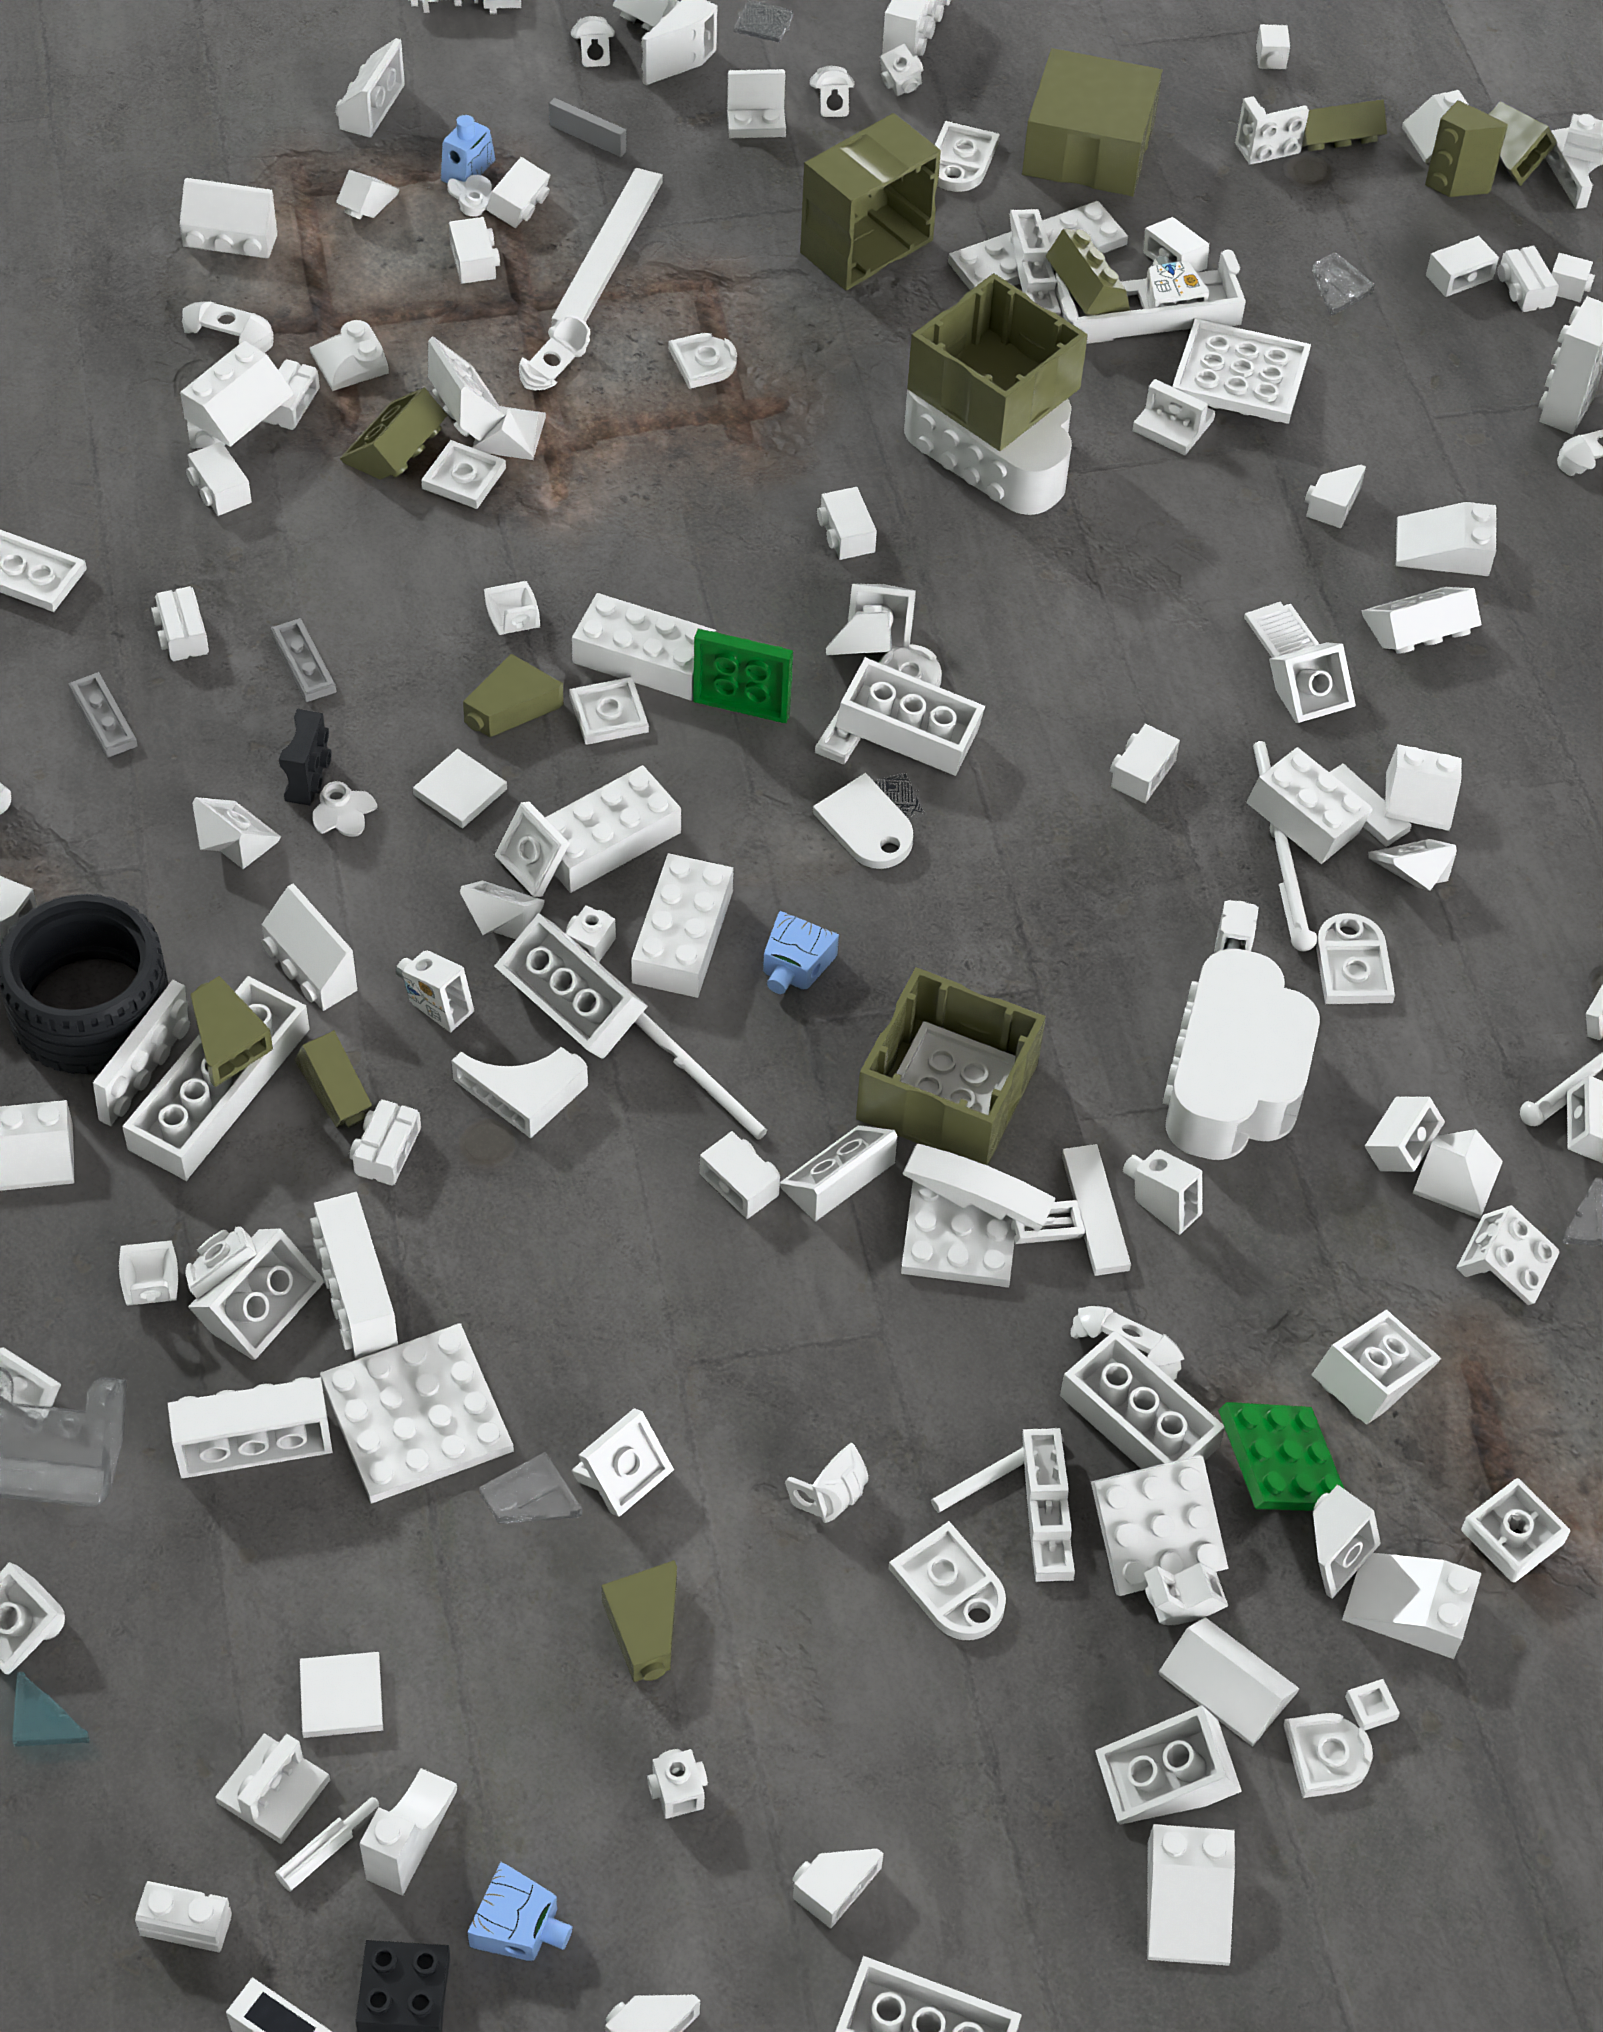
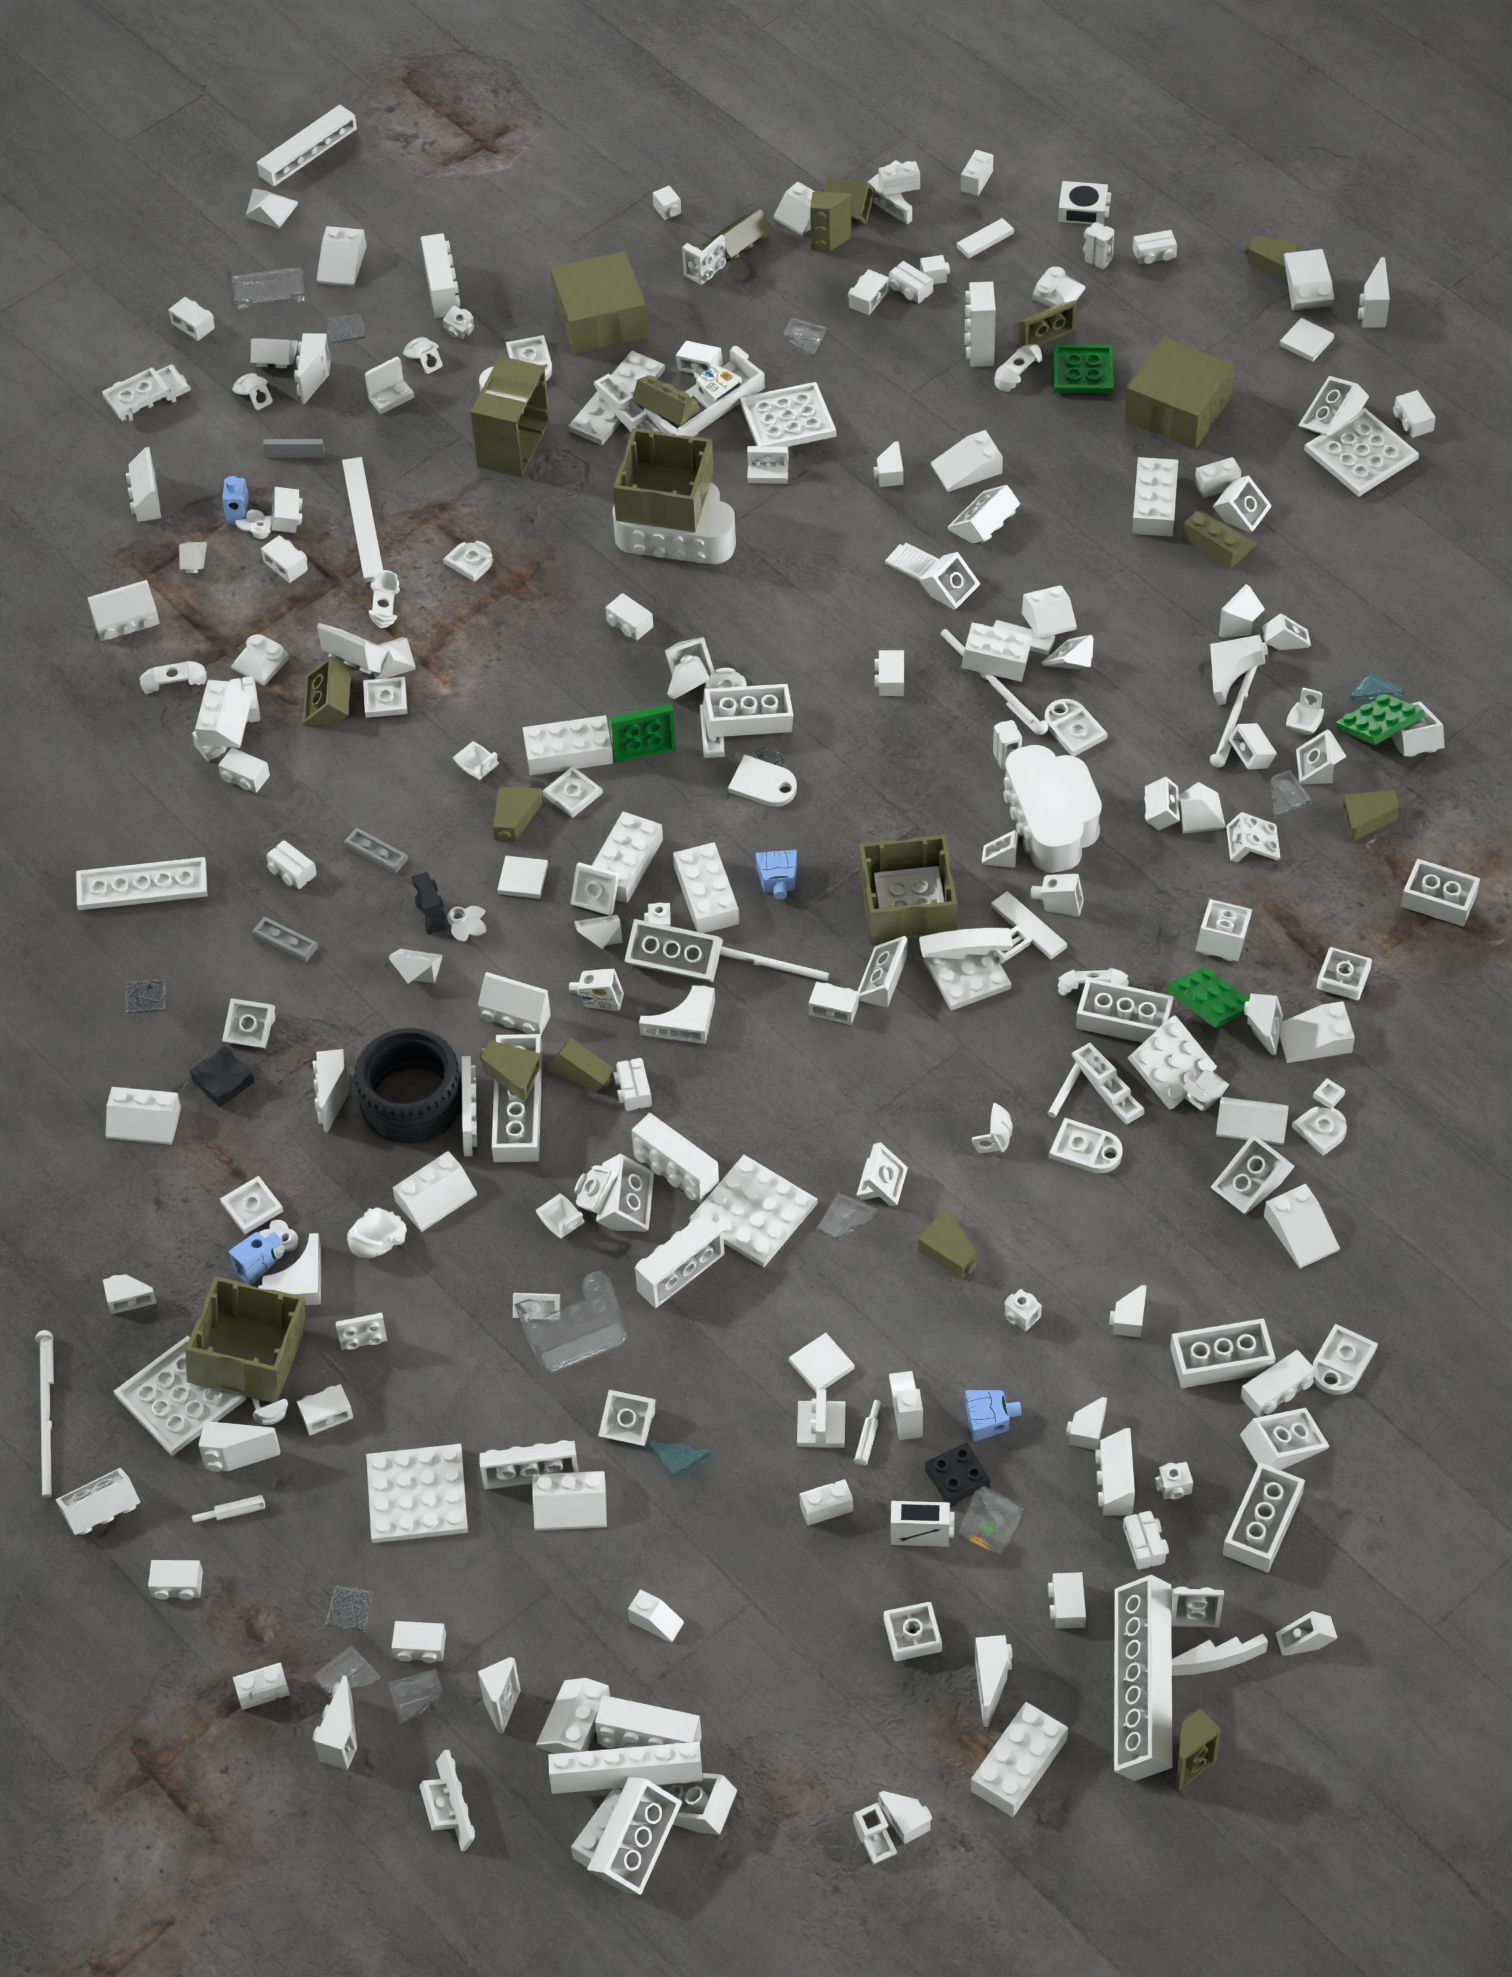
camera: 25 degrees left, 0 degrees up
(1131, 1084) = (1001, 851): none -> white slope

